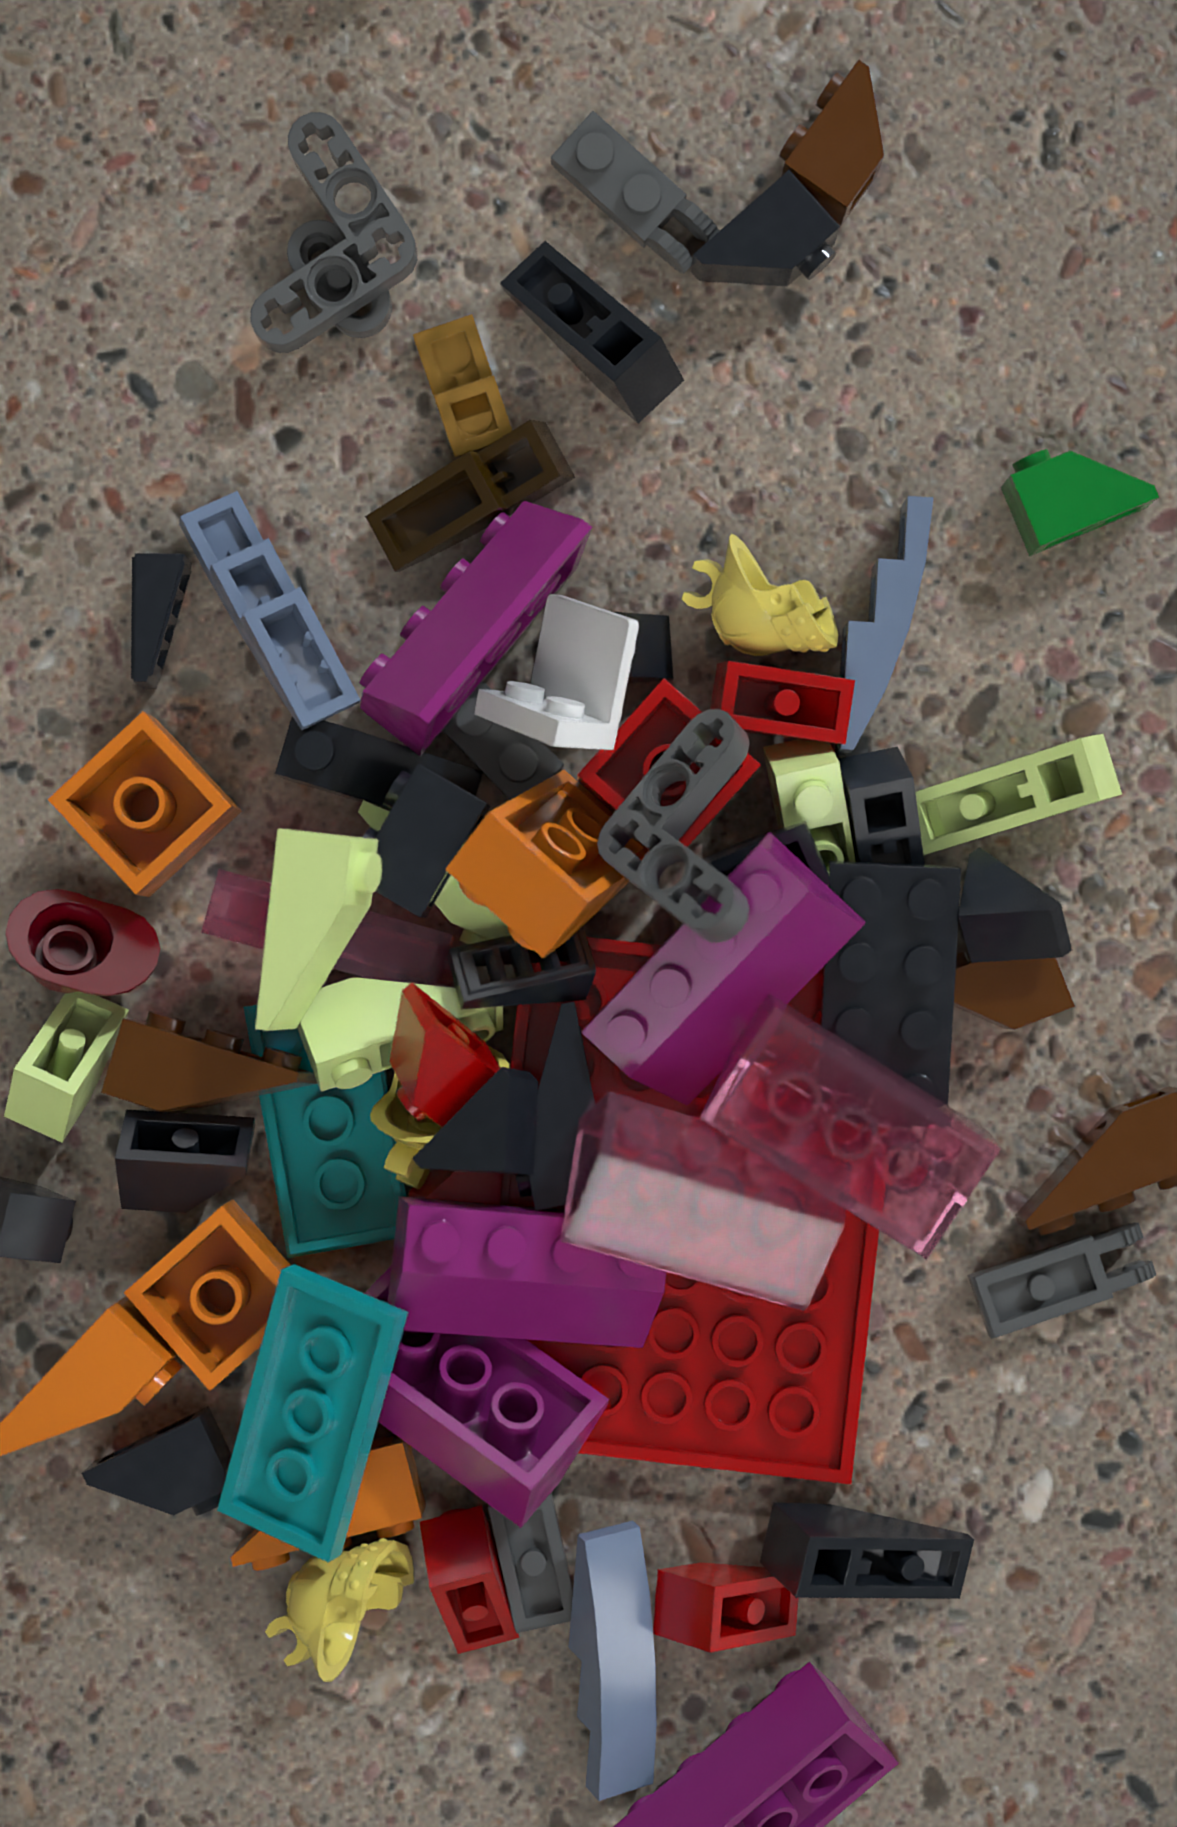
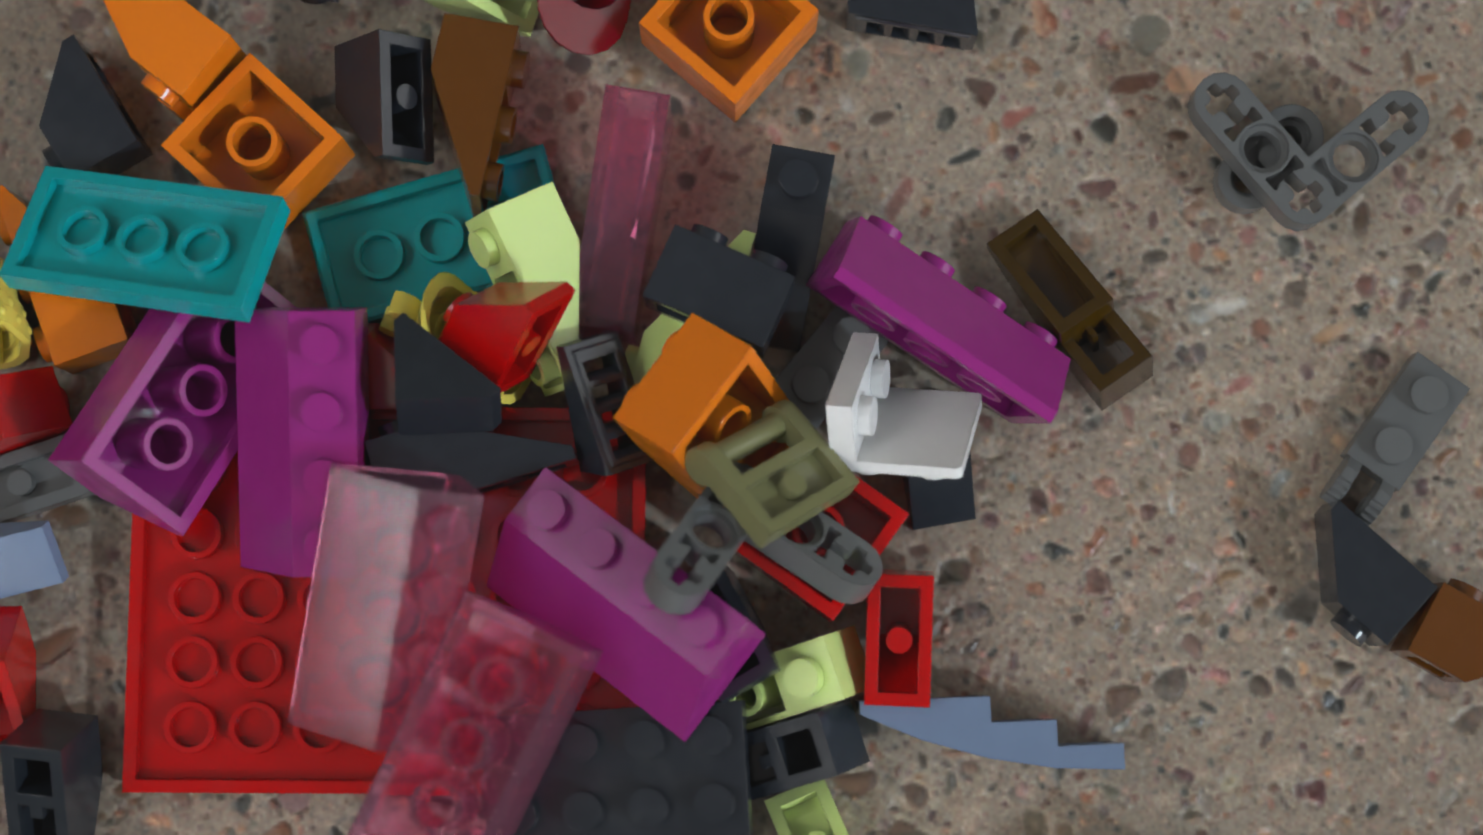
camera: 75 degrees right, 5 degrees down
(269, 611) = (931, 124): sand blue slope -> none
(315, 906) = (639, 188): yellowish green slope -> none
(462, 384) = (1179, 290): pearl gold slope -> none
(594, 331) = (1249, 413): black slope -> none
(632, 797) = (782, 489): none -> olive plate
(759, 615) = (986, 610): light yellow helmet -> none

